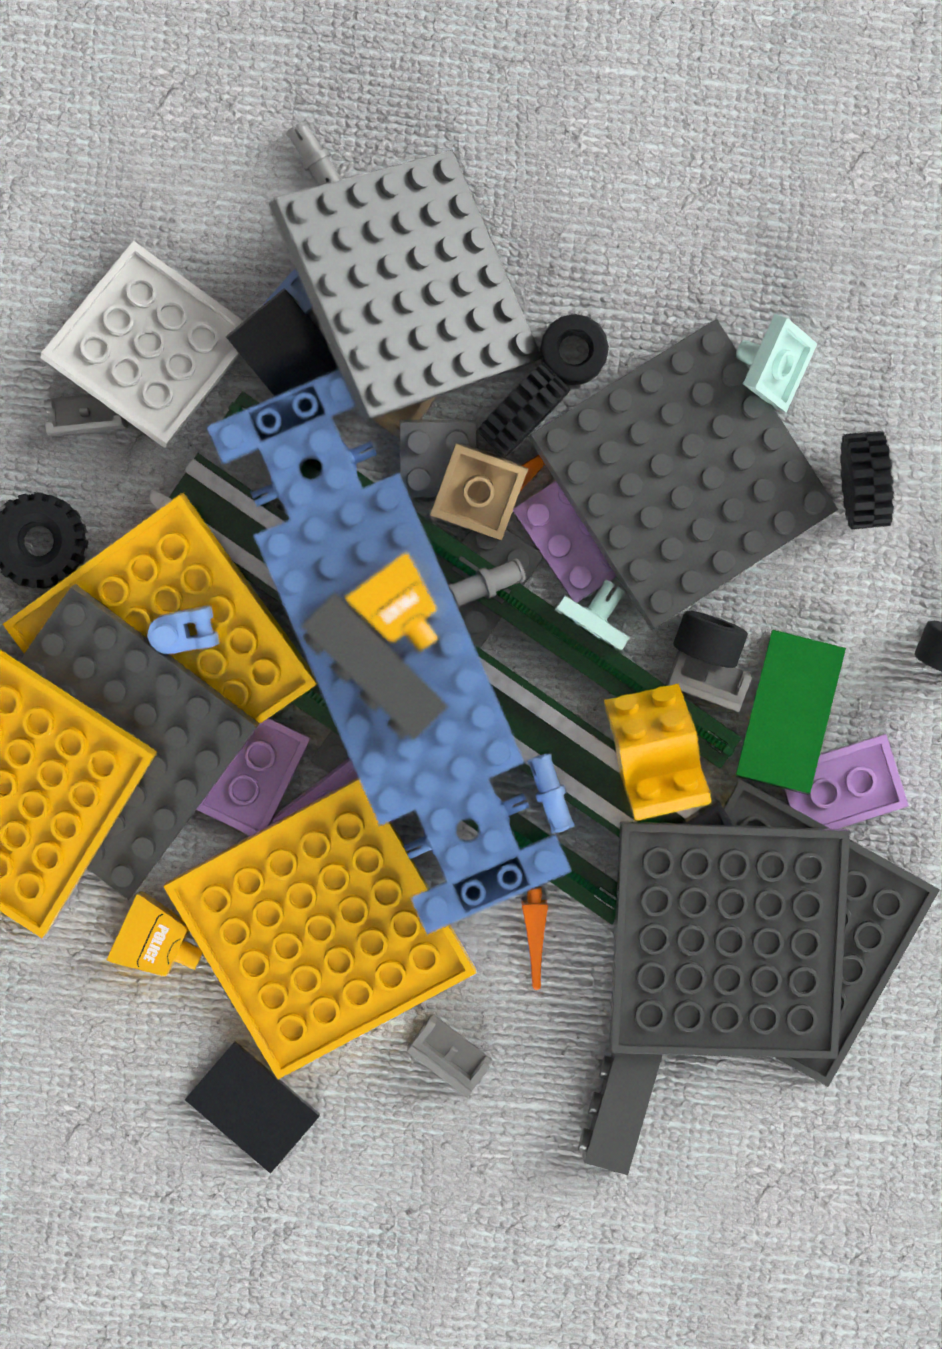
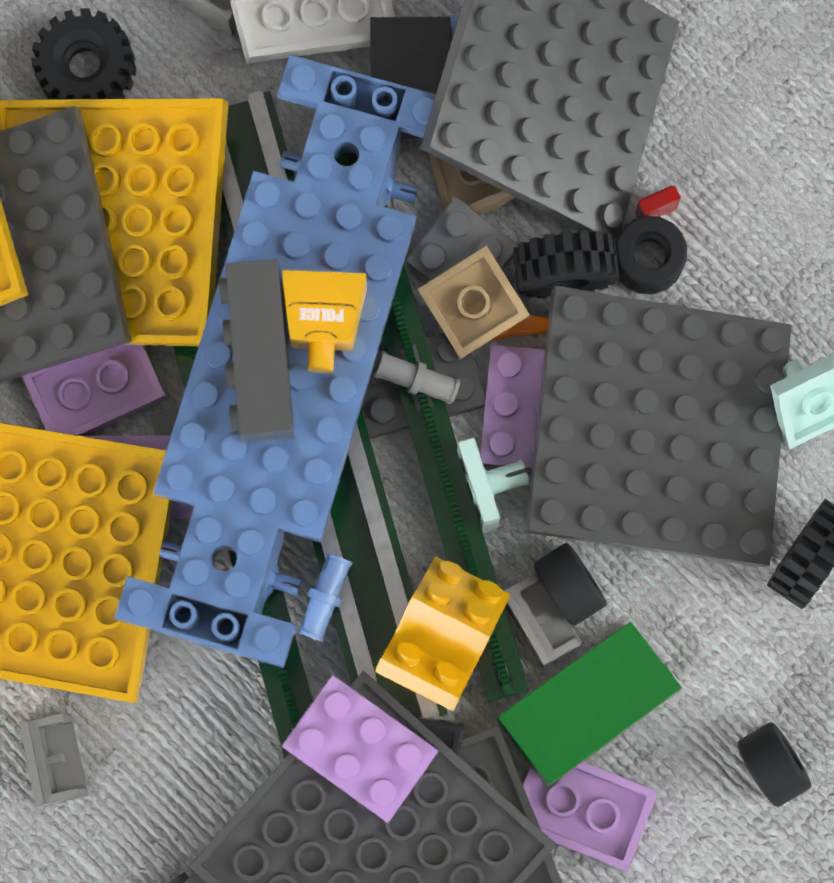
camera: 45 degrees right, 10 degrees down
(171, 632) = (122, 208): light blue plate -> none
(535, 917) = (224, 703): orange piece -> none
(549, 306) = (659, 203): none -> red tile
(664, 878) = (360, 748): none -> lavender plate

